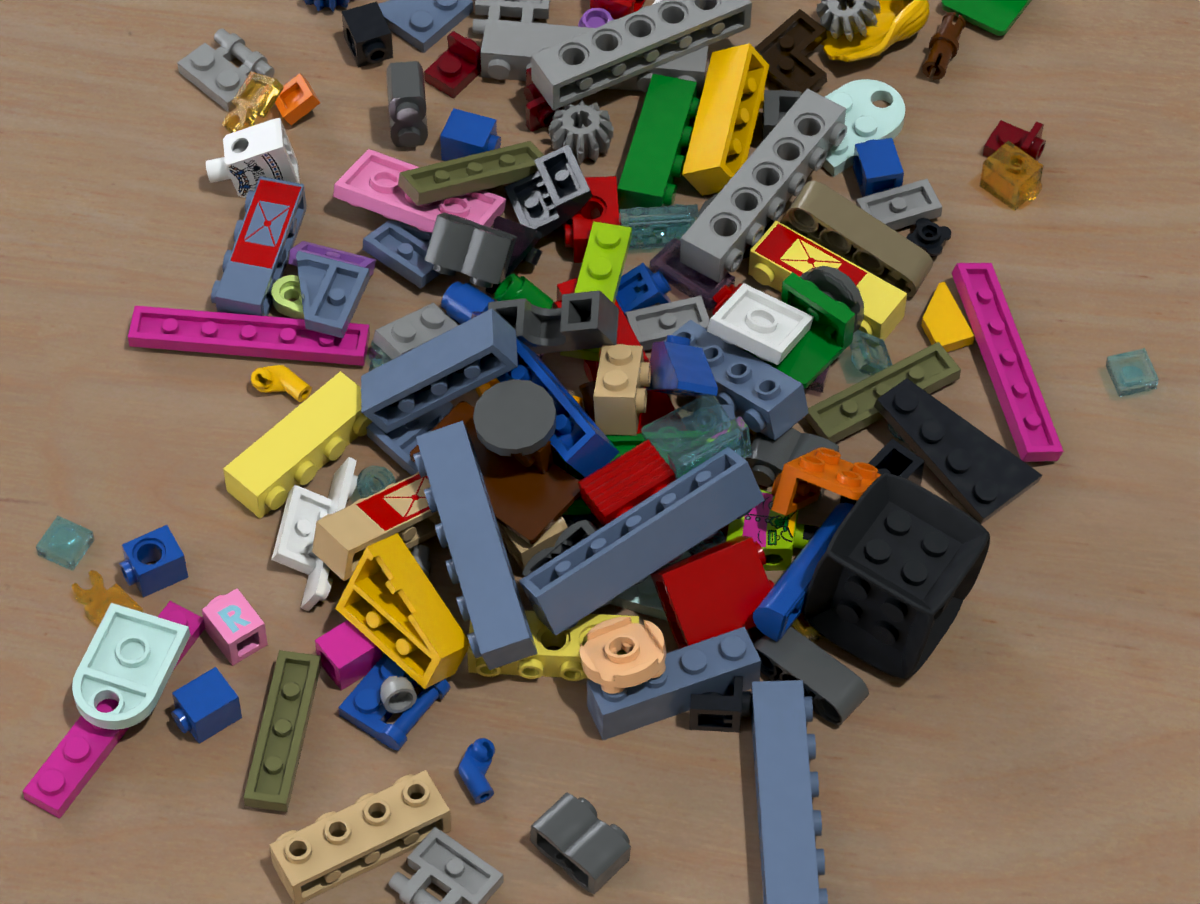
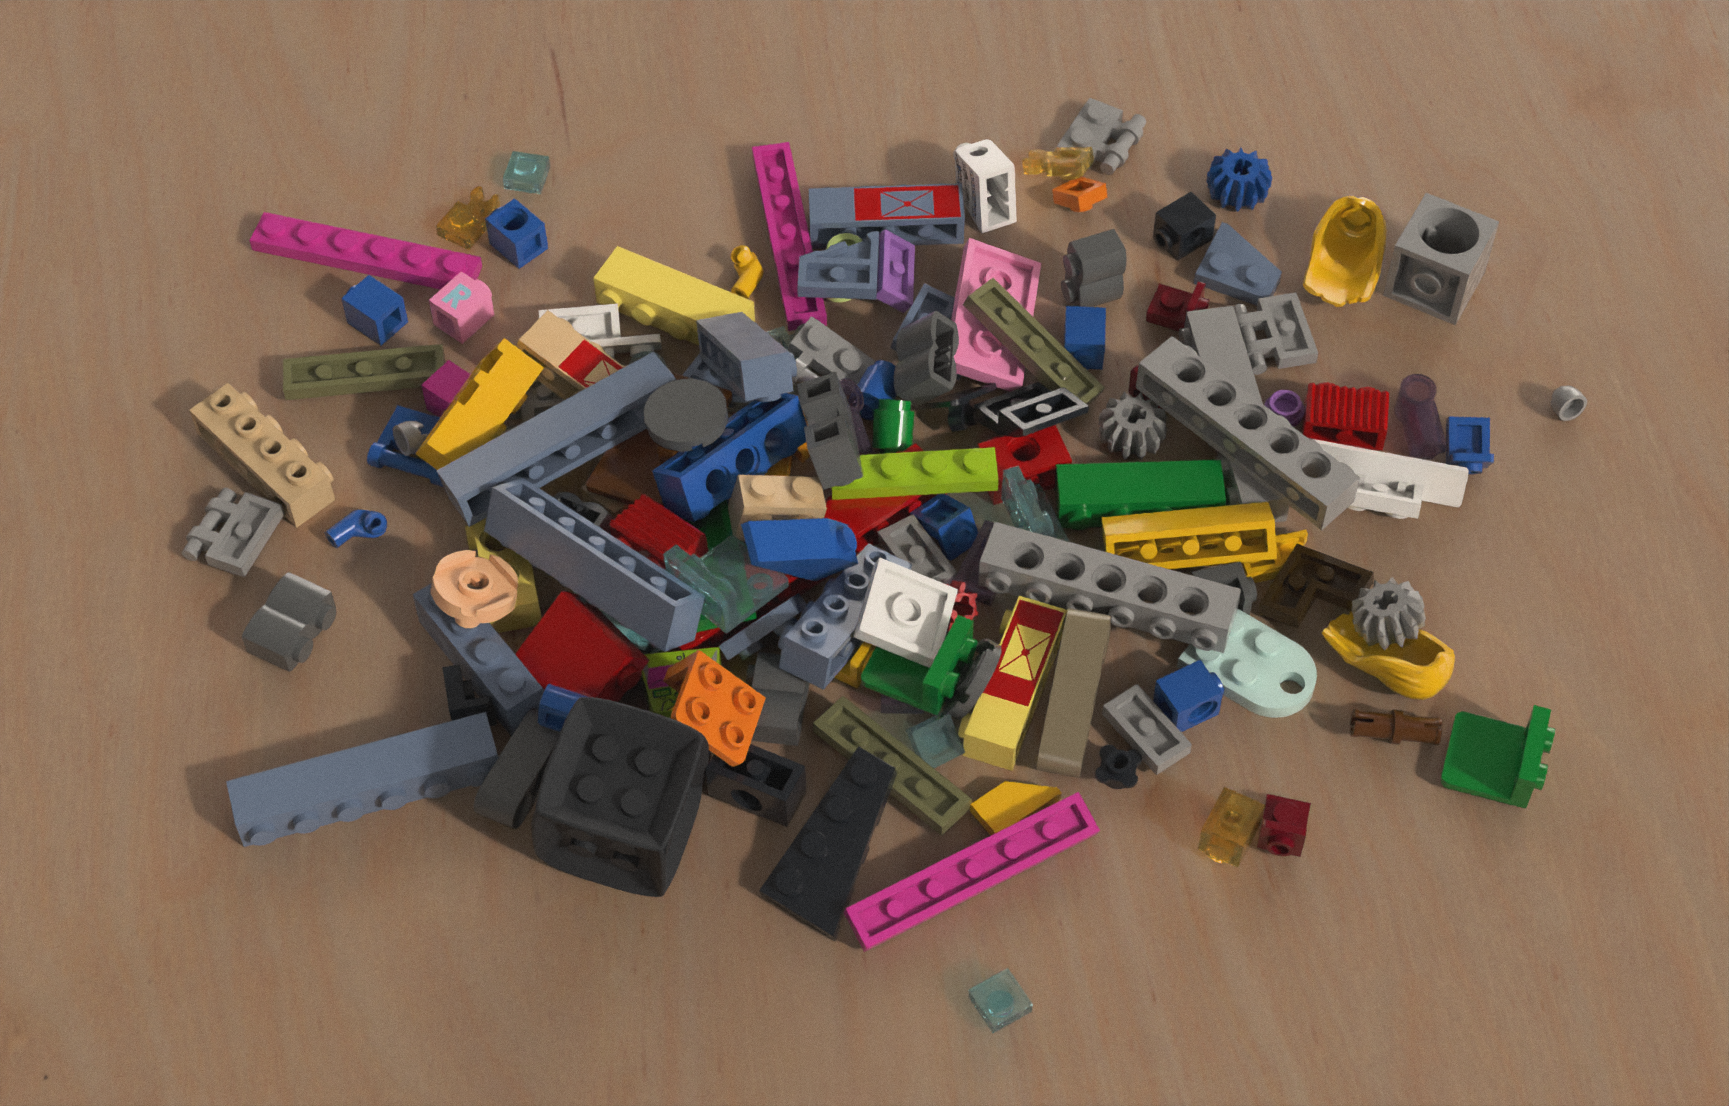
camera: 75 degrees right, 0 degrees up
(127, 663) = (388, 236): light aqua plate -> none

